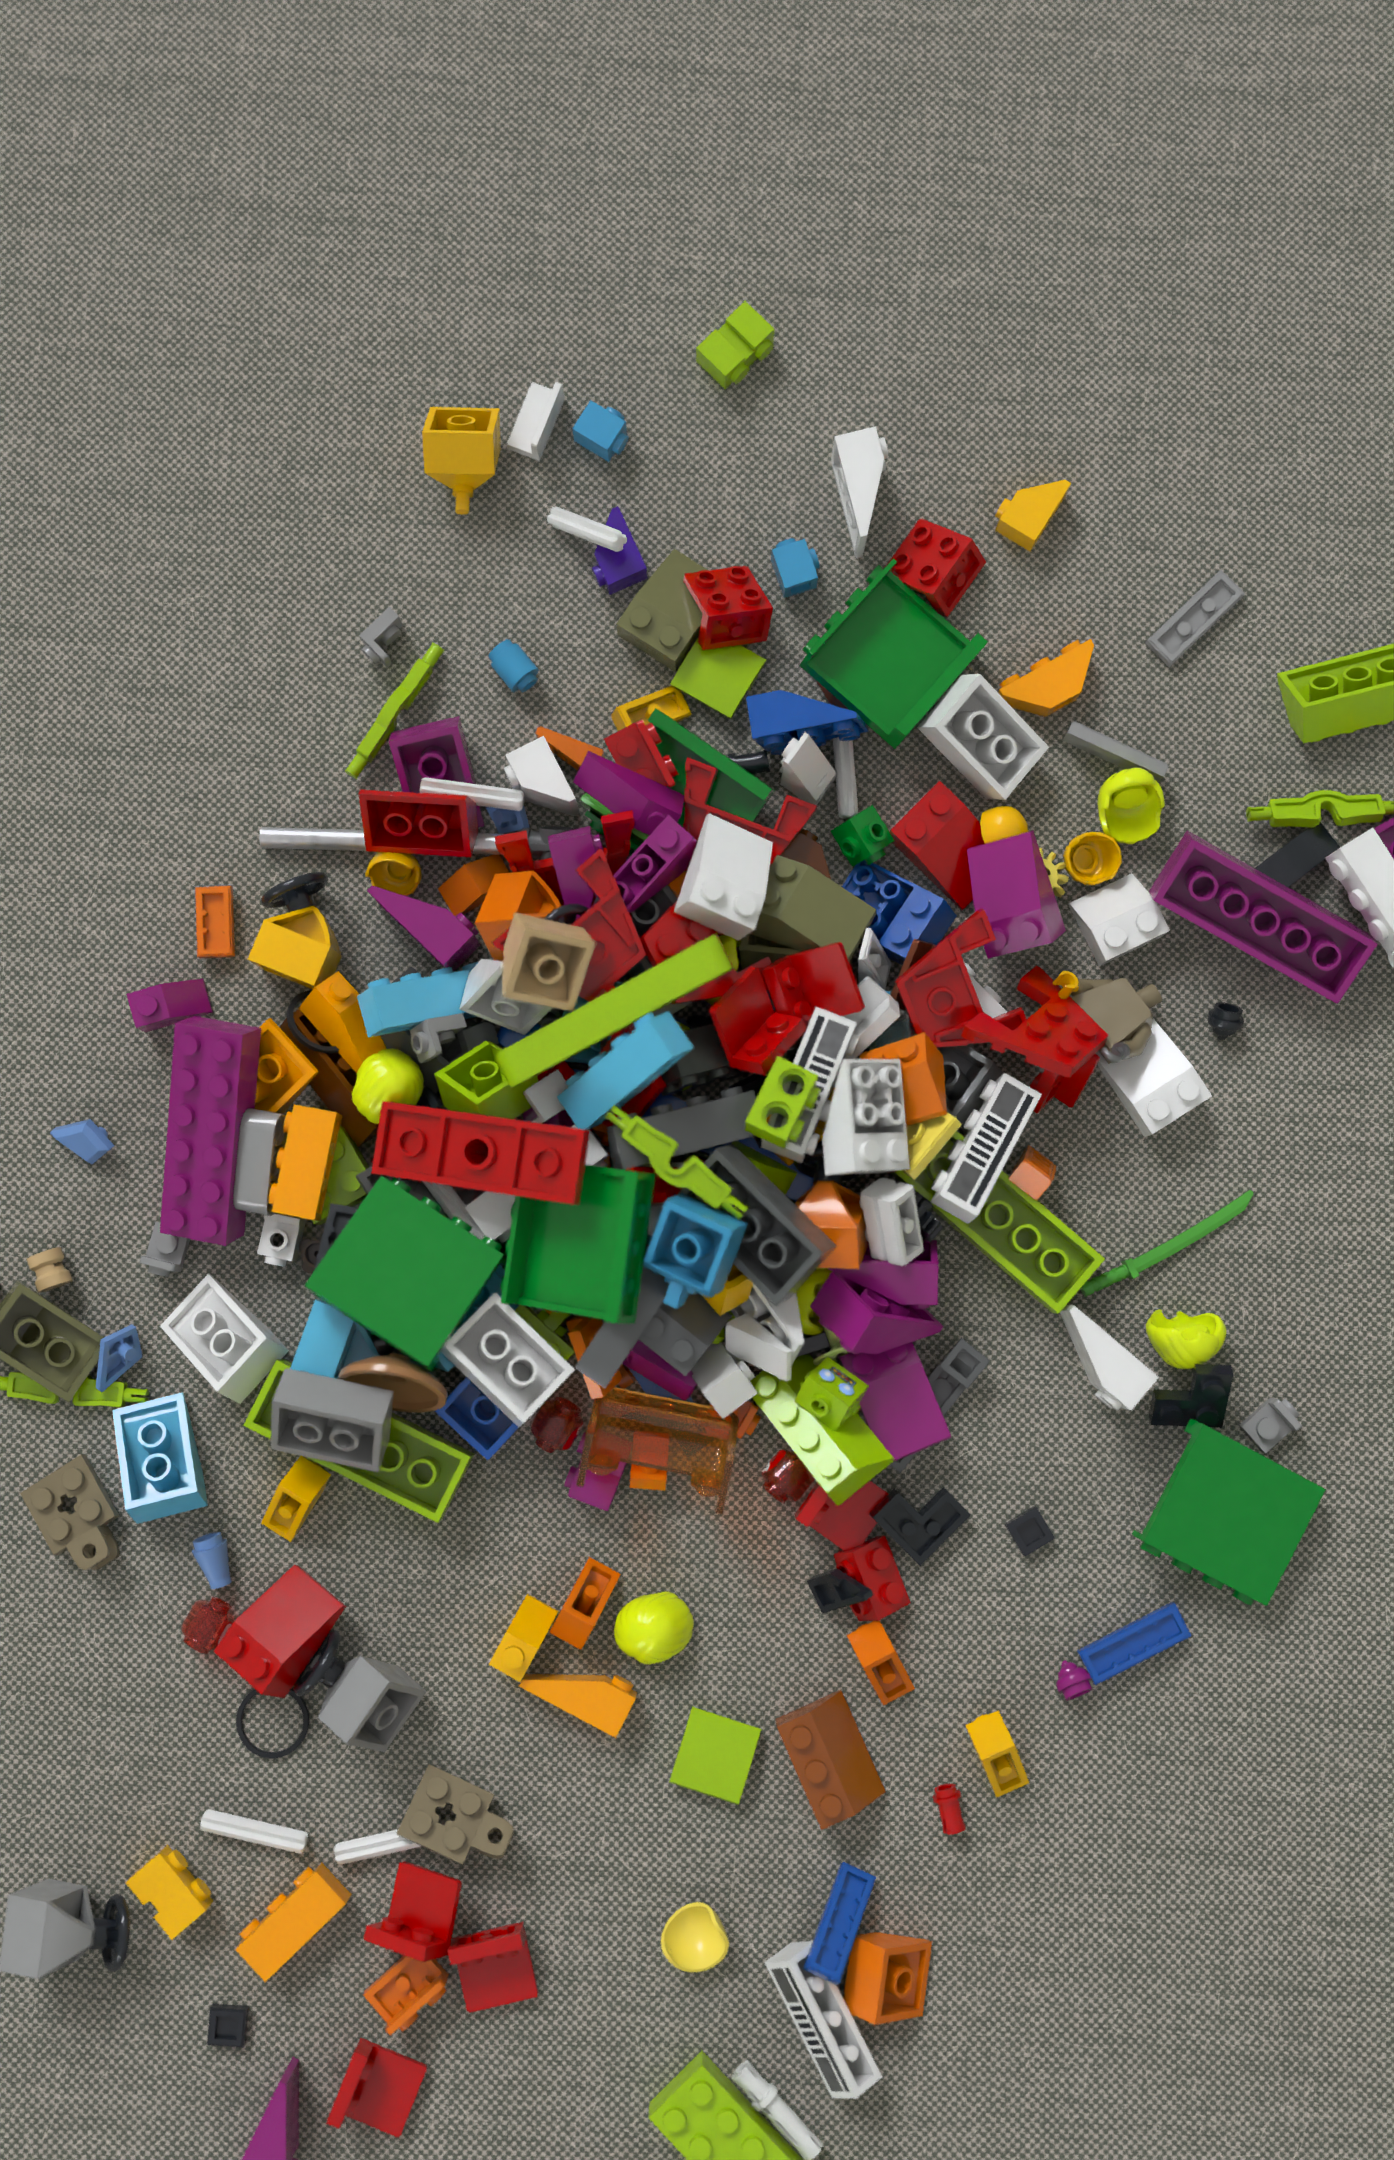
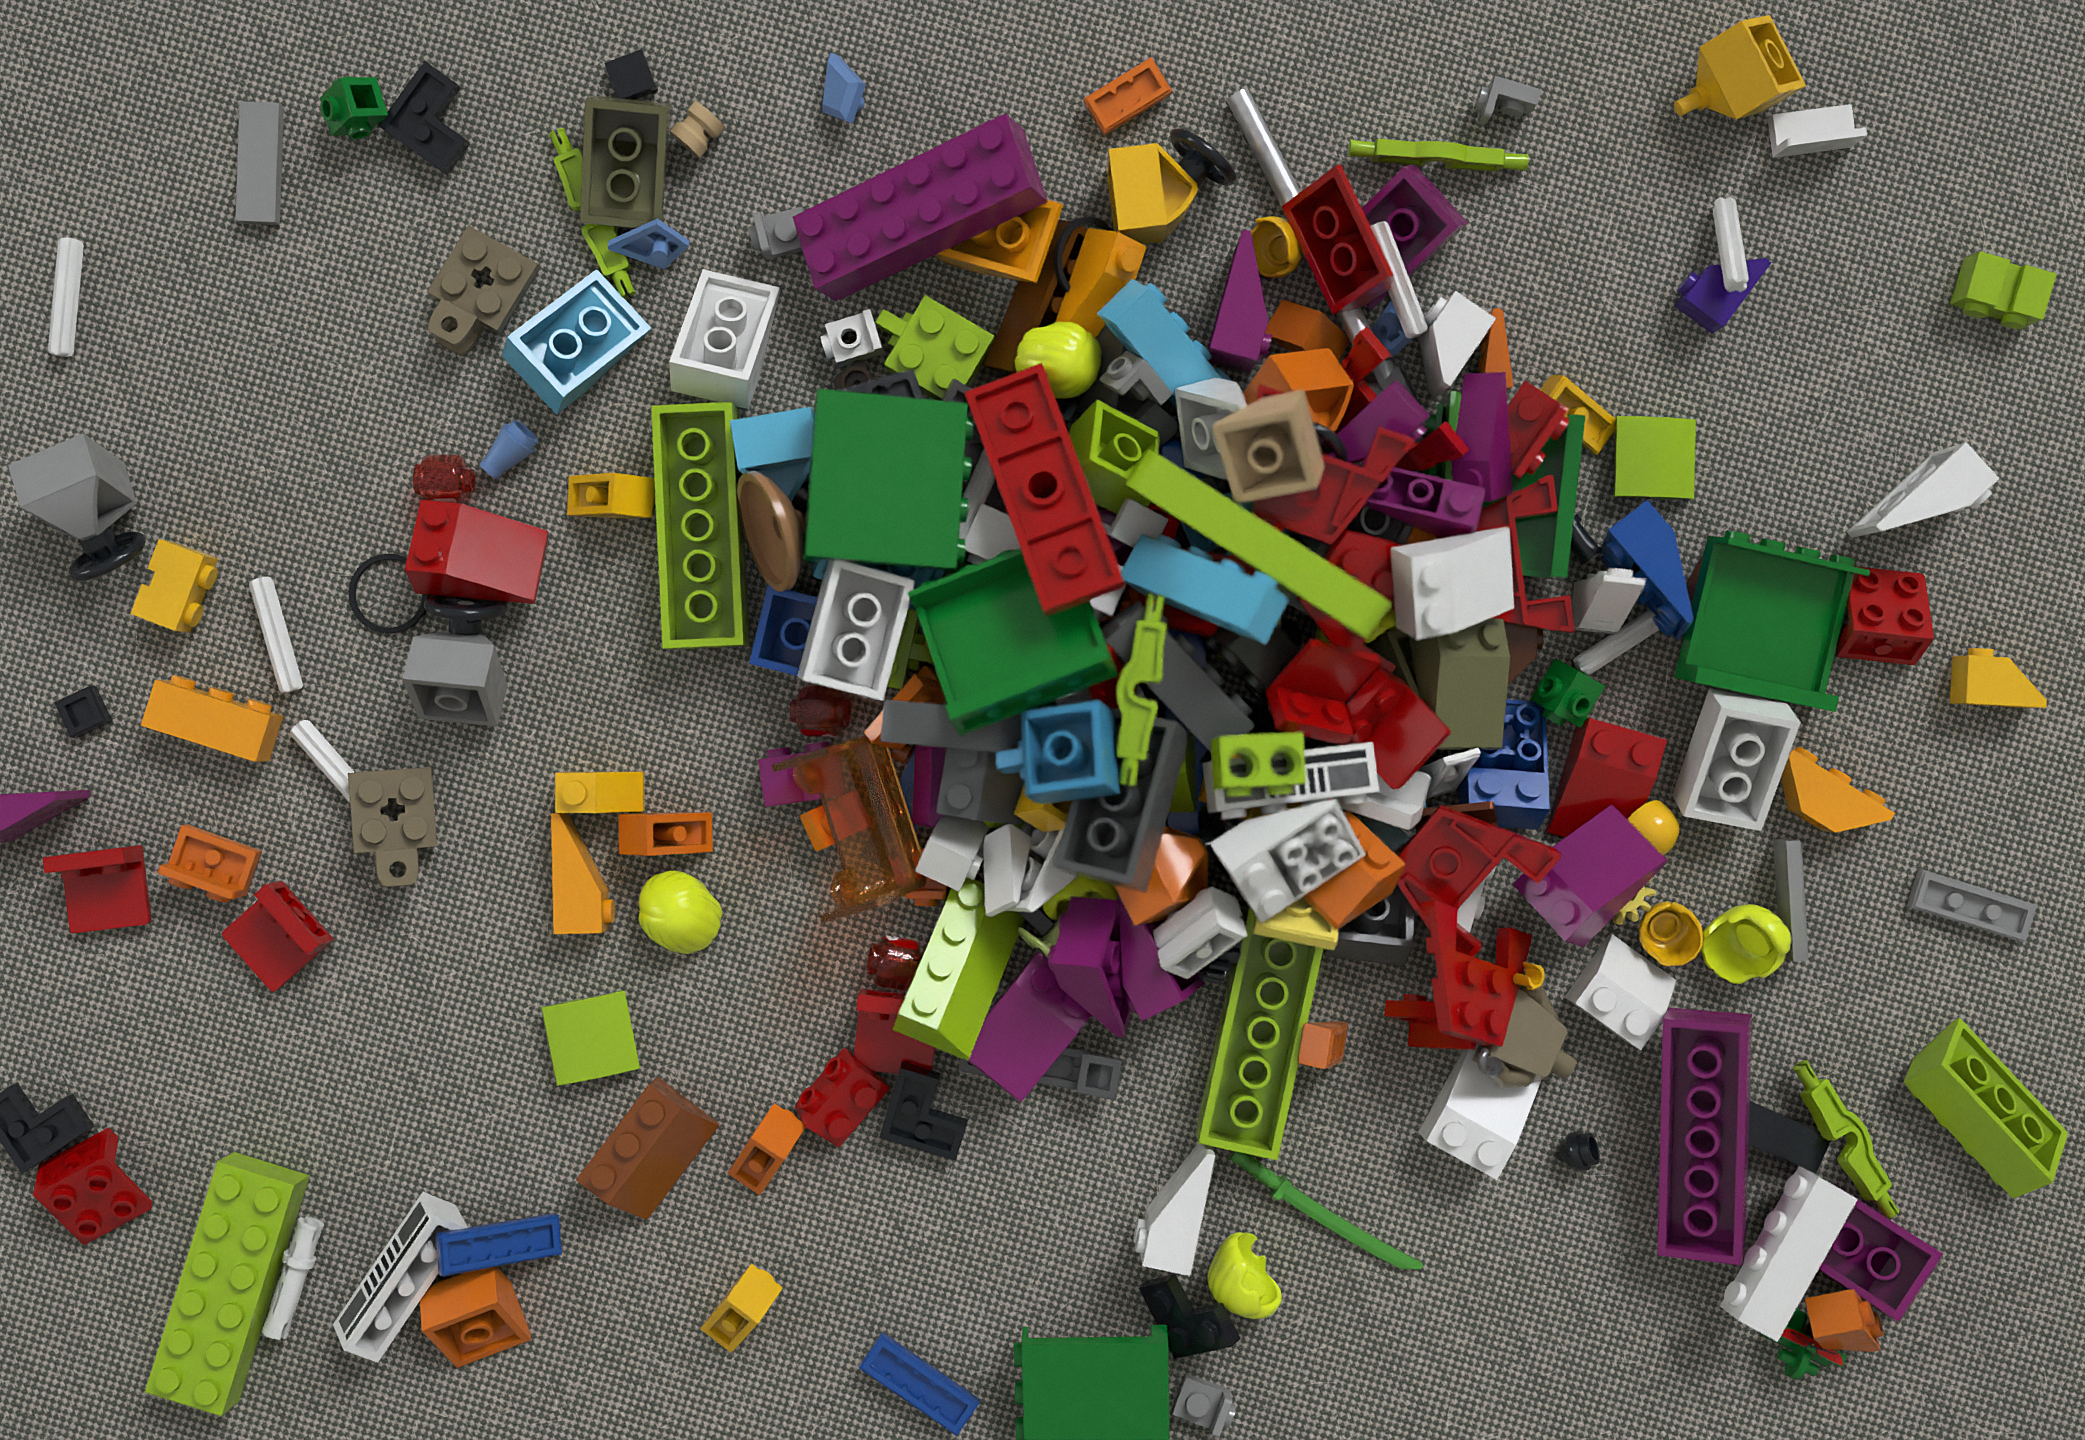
camera: 60 degrees right, 5 degrees up
(168, 1004) = (1021, 96): magenta slope -> none
(256, 1169) = (915, 276): light grey beam -> none
(305, 1162) = (939, 321): light orange brick -> none
(331, 1419) = (703, 489): light grey brick -> none
(419, 1914) = (285, 837): red bracket -> none
(513, 666) = (1548, 249): dark azure brick -> none
(601, 431) = (1839, 202): dark azure brick -> none
(663, 613) = (1693, 376): olive slope -> none
(694, 1938) = (408, 1112): light yellow helmet -> none
(731, 607) = (1729, 435): red bracket -> none
(795, 566) = (1805, 475): dark azure brick -> none
(831, 1393) = (998, 963): lime head -> none
(837, 1590) = (811, 1070): black tile -> none
(949, 1808) = (664, 1290): red pin -> none
(985, 1147) = (1323, 984): brick -> none
(1029, 1531) = (971, 1225): black tile -> none
(1073, 1681) = (851, 1344): magenta plate -> none

